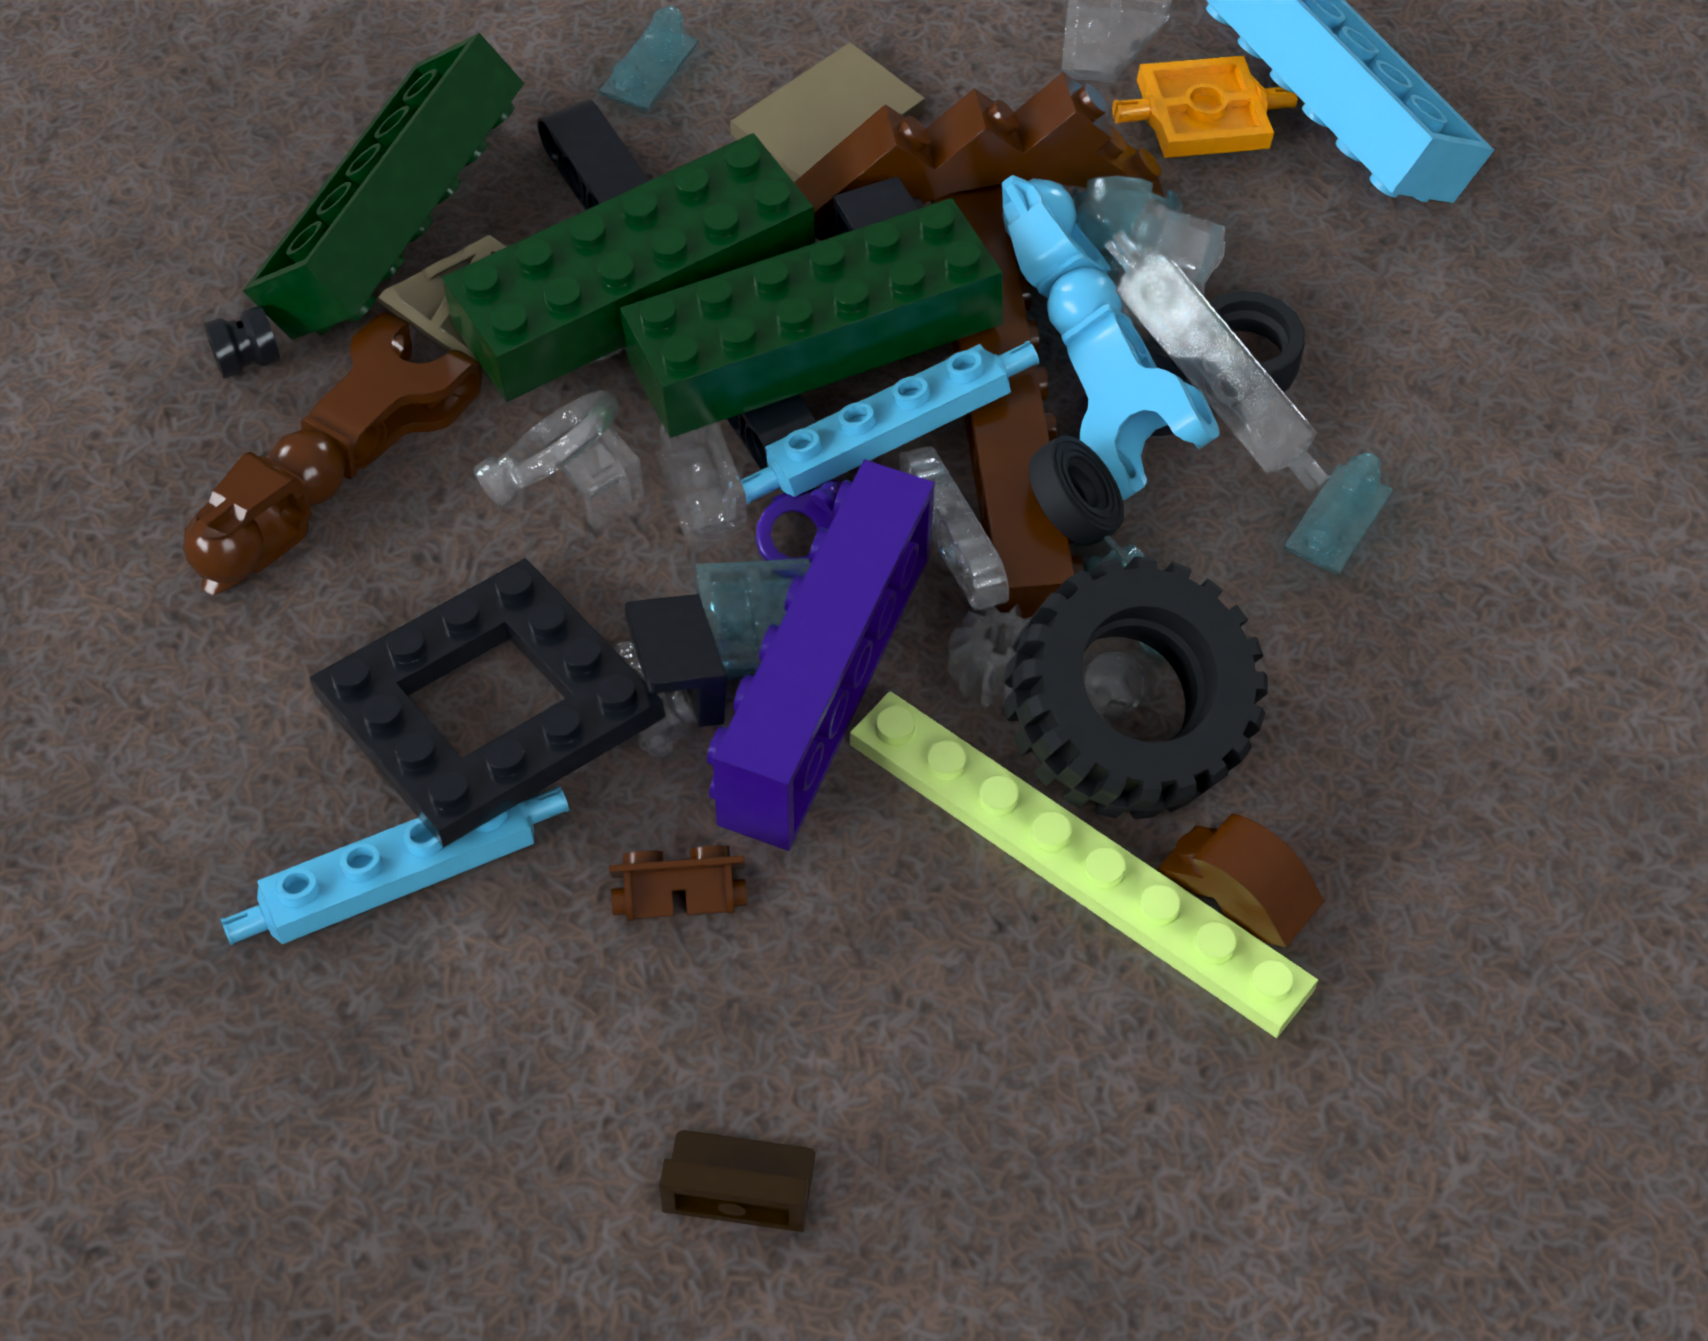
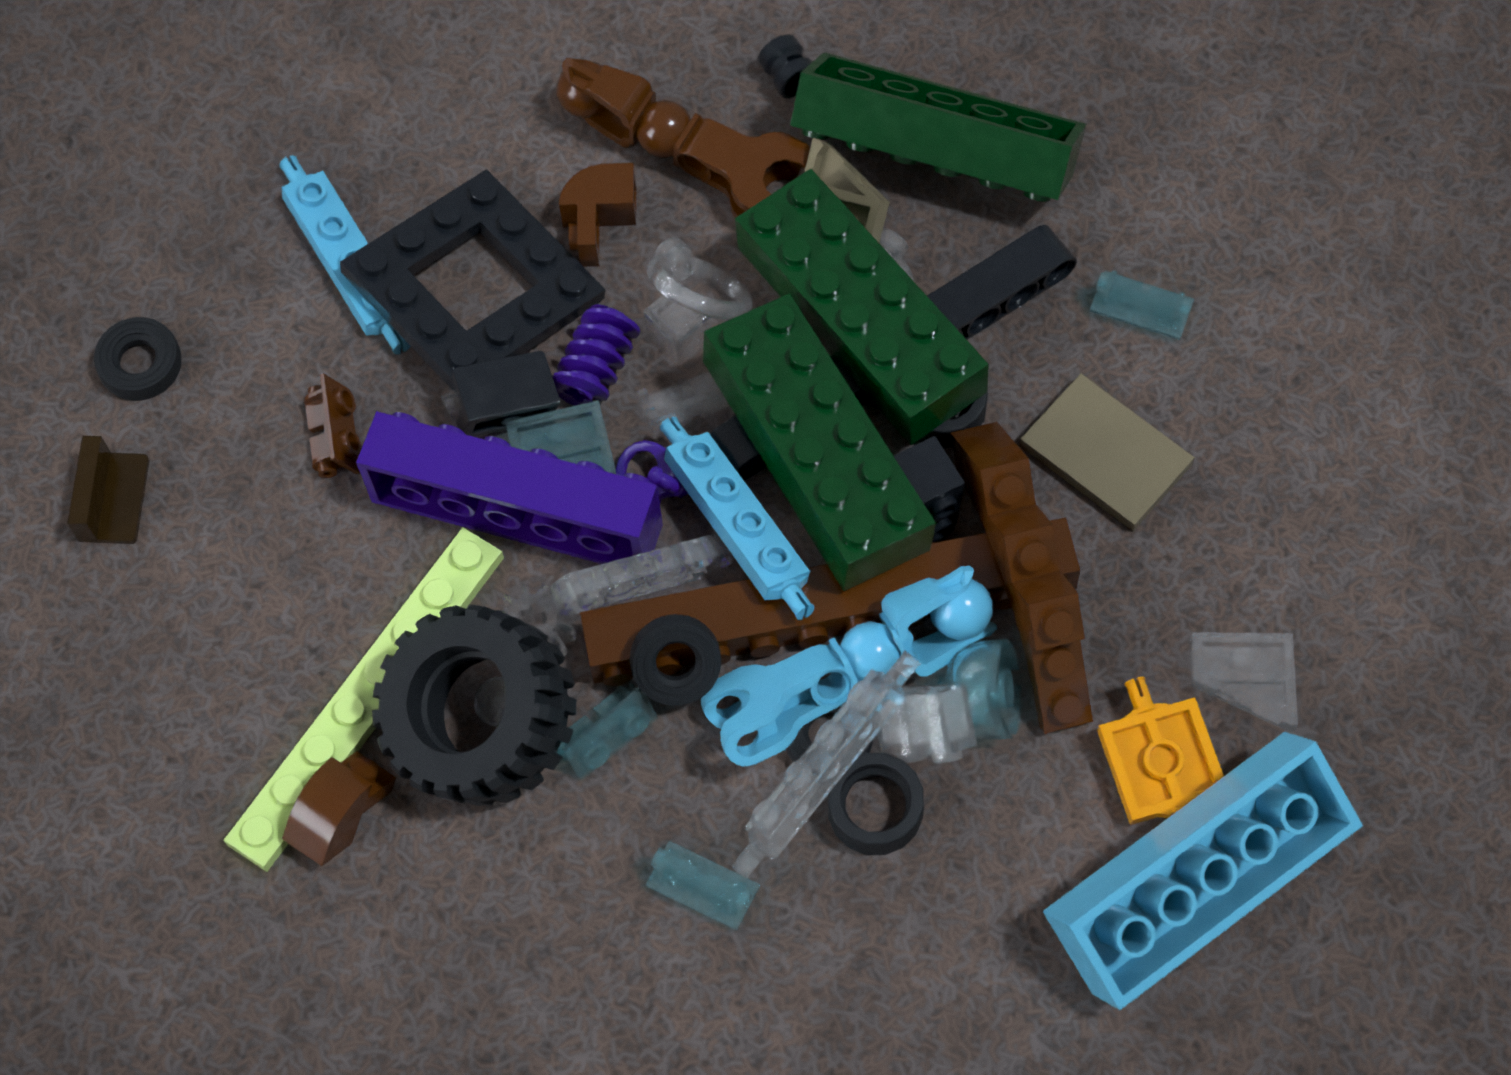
camera: 90 degrees right, 10 degrees up
(398, 557) = (594, 199): none -> reddish brown brick
(517, 1181) = (130, 333): none -> black tyre
(622, 565) = (592, 354): none -> dark purple piece

